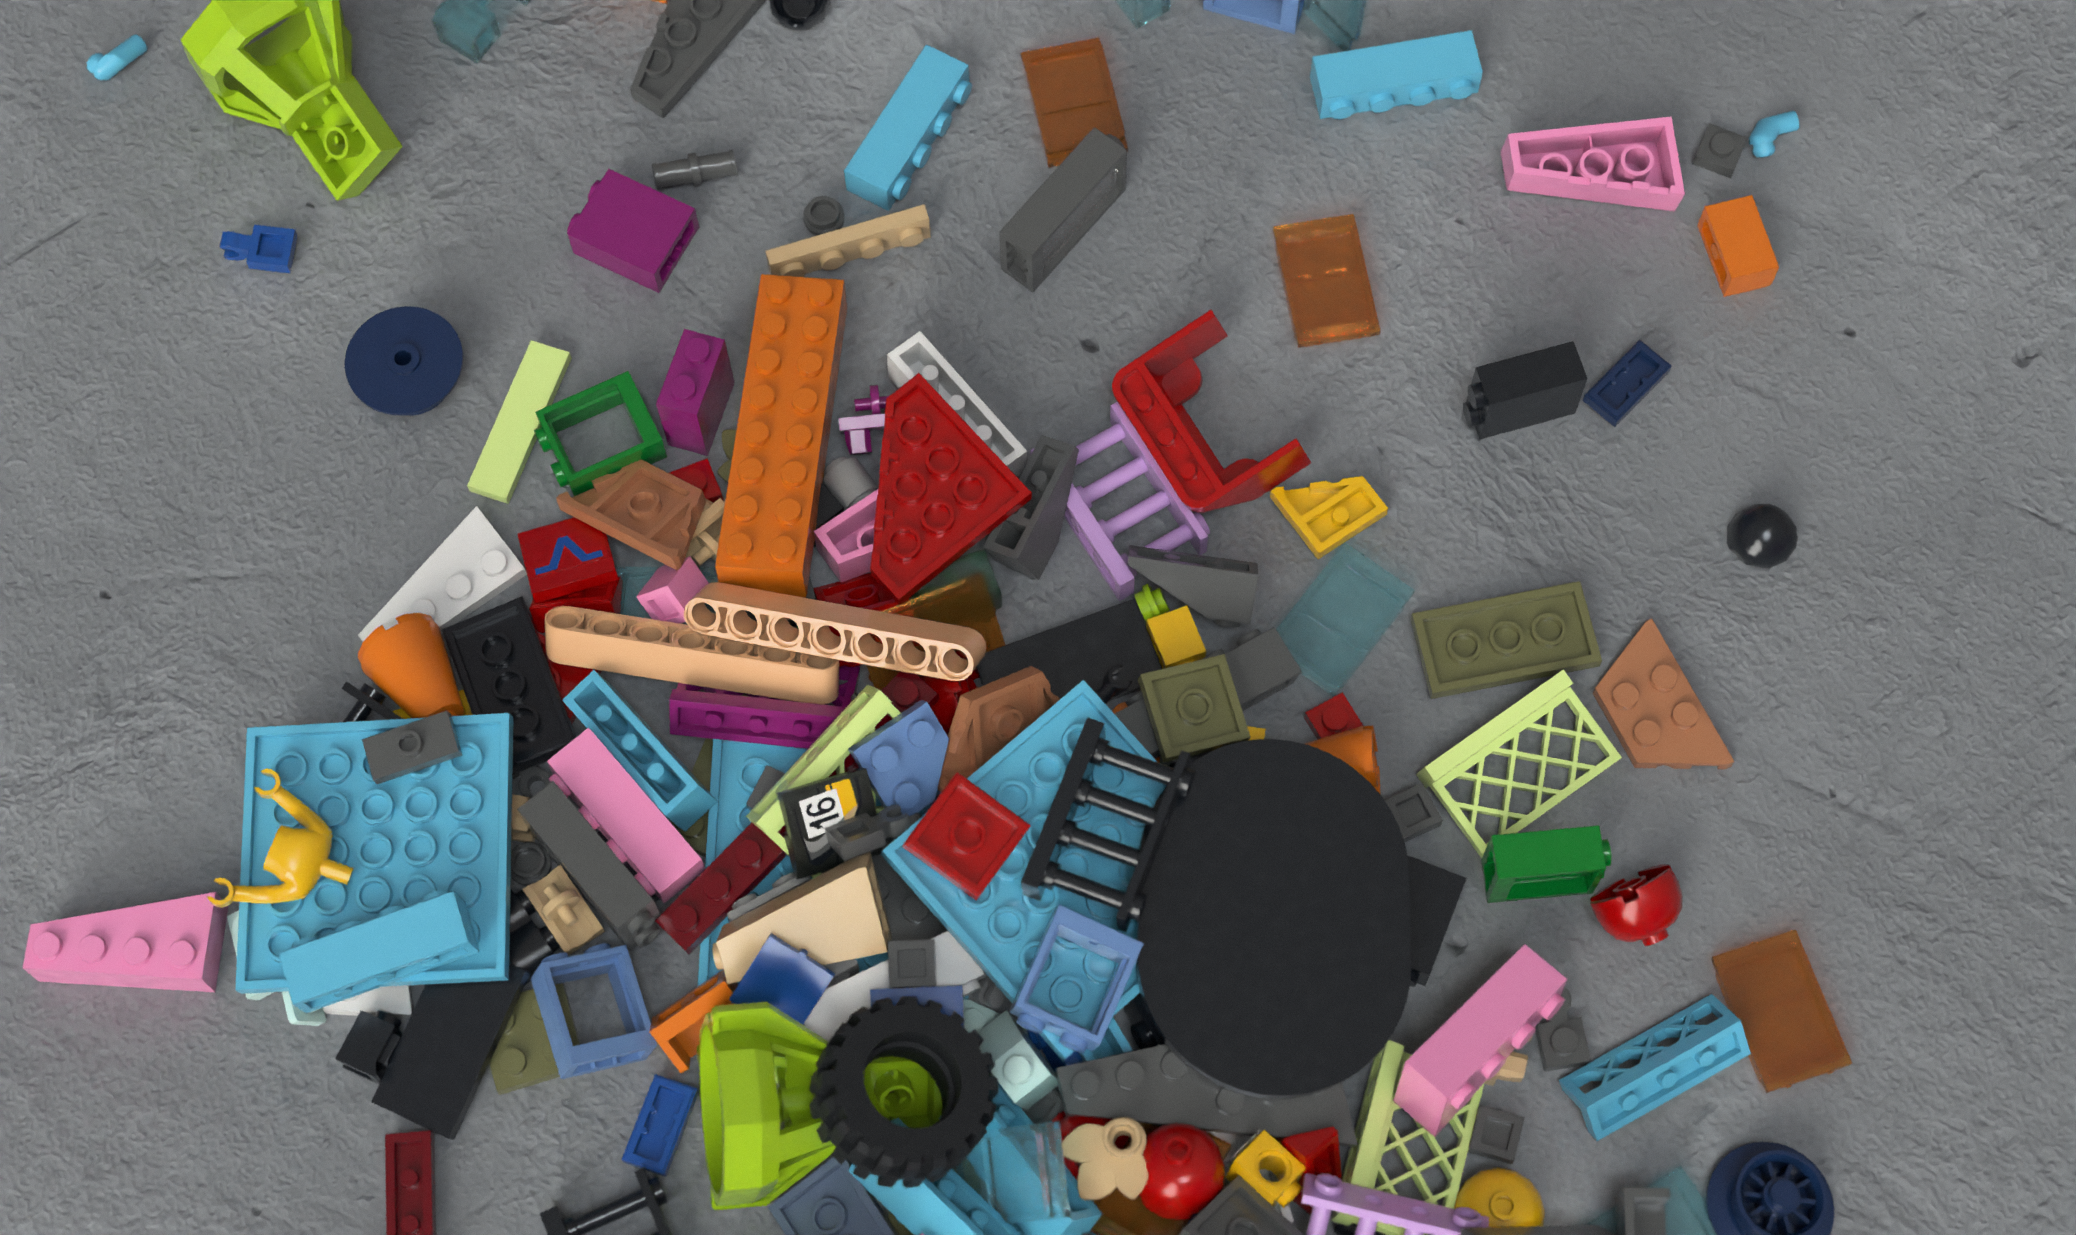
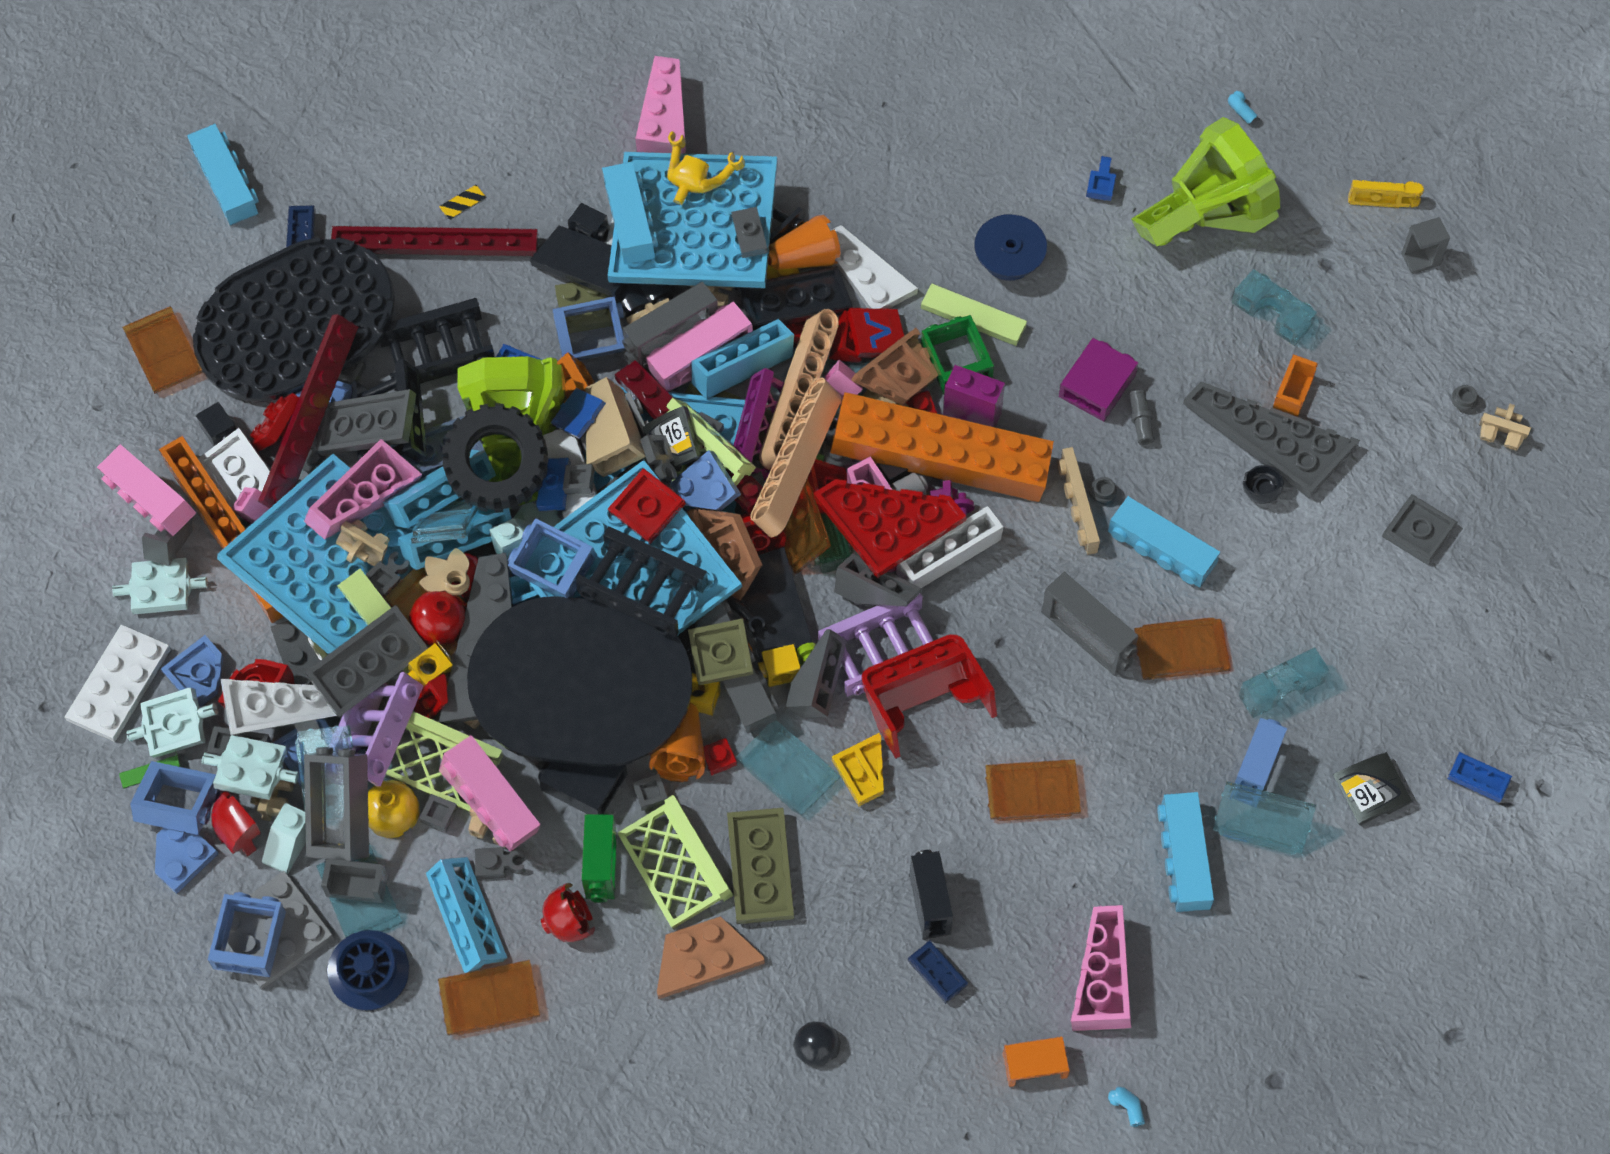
camera: 95 degrees right, 5 degrees down
(1719, 150) = (1116, 1067): dark grey plate -> none

